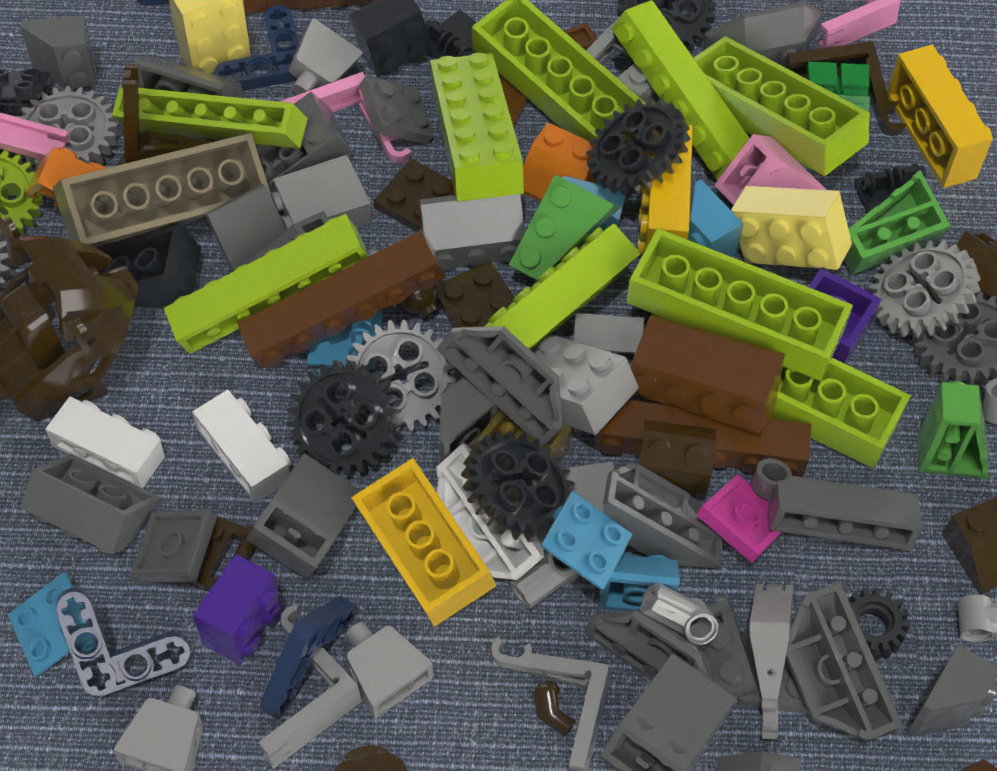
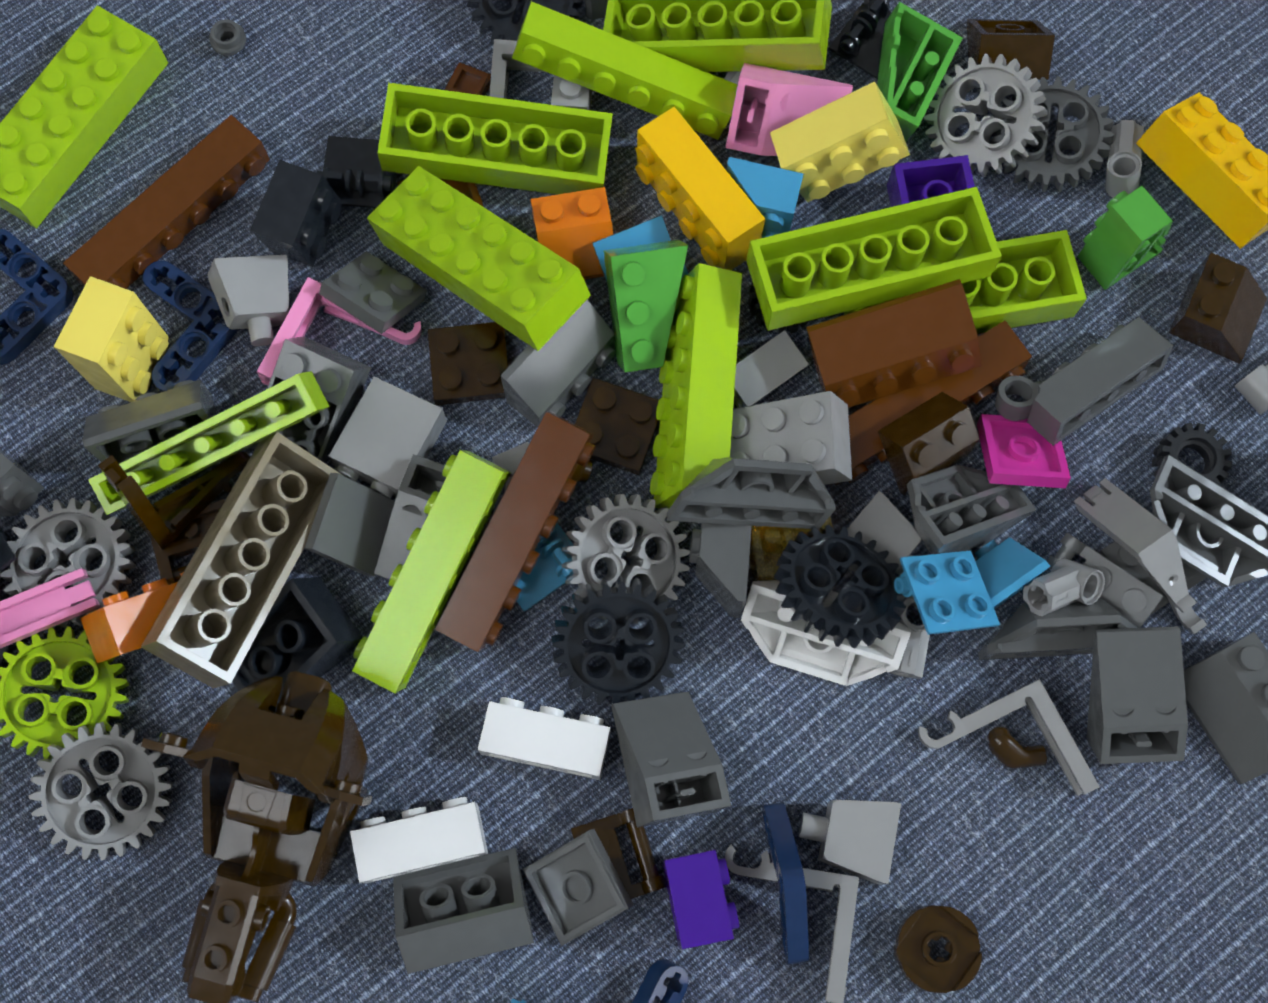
camera: 40 degrees left, 15 degrees up
(424, 542) = (793, 699): yellow brick -> none
(652, 128) = (655, 129): black gear -> none

